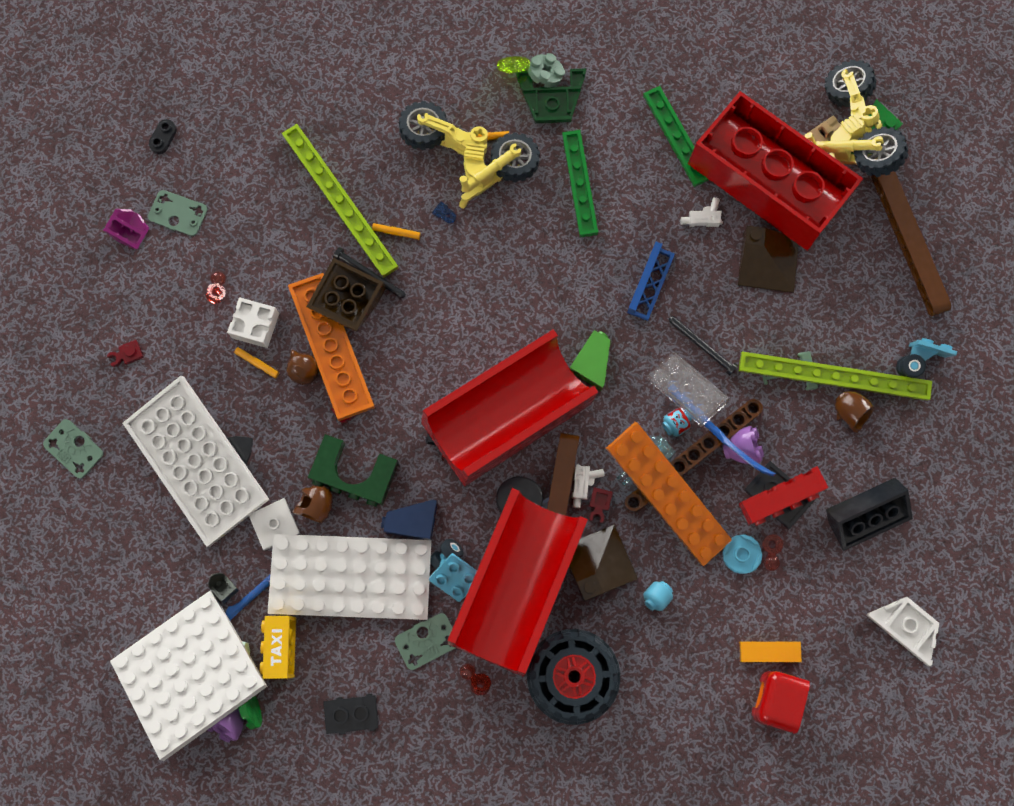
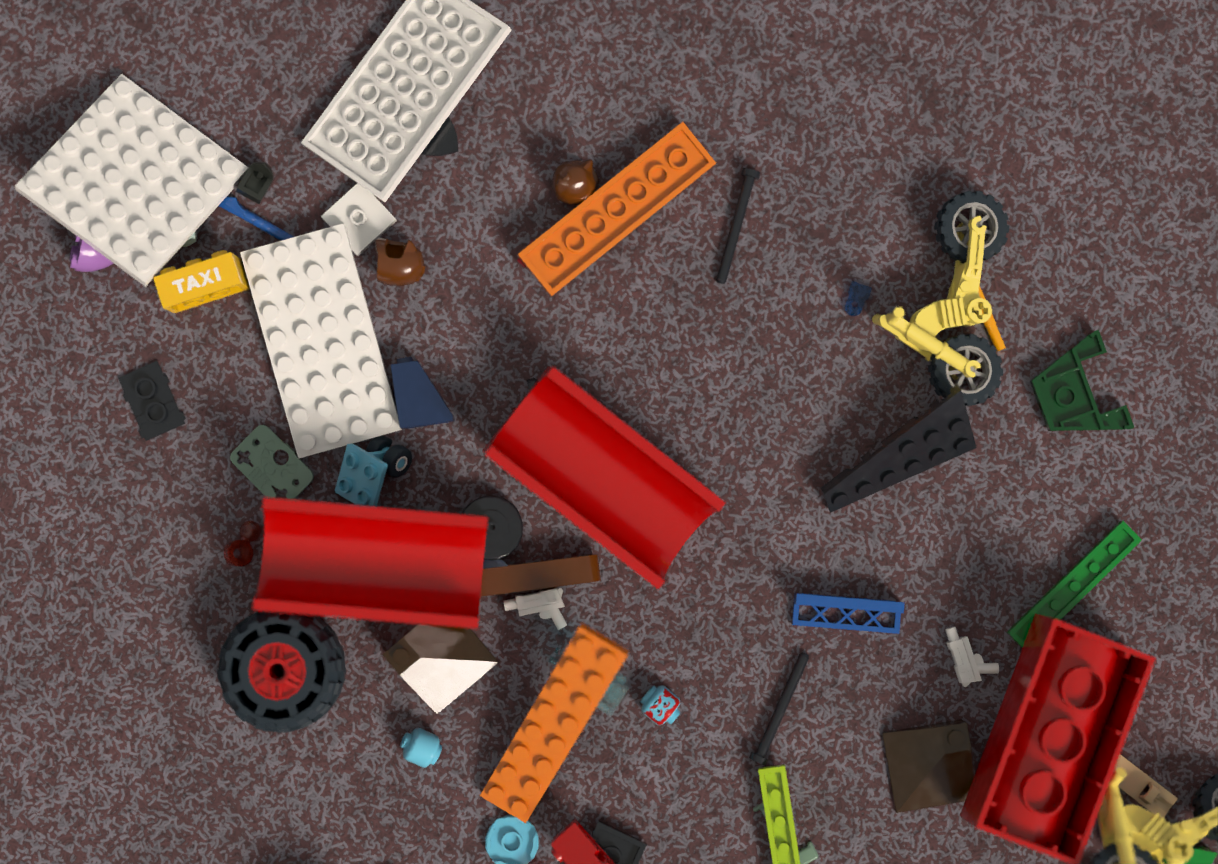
camera: 70 degrees right, 10 degrees up
(216, 288) = (662, 24): clear red plate -> none
(251, 712) = (109, 278): green tile -> none
(253, 322) = (615, 94): white piece -> none
(256, 362) = (565, 117): light orange piece -> none
(340, 201) = (828, 148): lime plate -> none
(346, 295) = (690, 206): dark brown slope -> none
(373, 489) = (444, 262): dark green arch -> none
(396, 231) = (808, 241): light orange piece -> none
(513, 64) = (1107, 323): clear neon green wheel -> none
(548, 63) = (1126, 372): sand green plate -> none
(556, 208) = (911, 449): none -> black wing
(580, 183) = (959, 471): green plate -> none
(592, 360) = (710, 567): bright green slope -> none
(600, 502) = (522, 635): dark red plate -> none
(688, 388) = (709, 706): clear plate -> none
(699, 448) = (636, 743): reddish brown beam -> none
(721, 436) = (658, 764): blue piece -> none
(747, 442) = (654, 805): medium lavender piece -> none

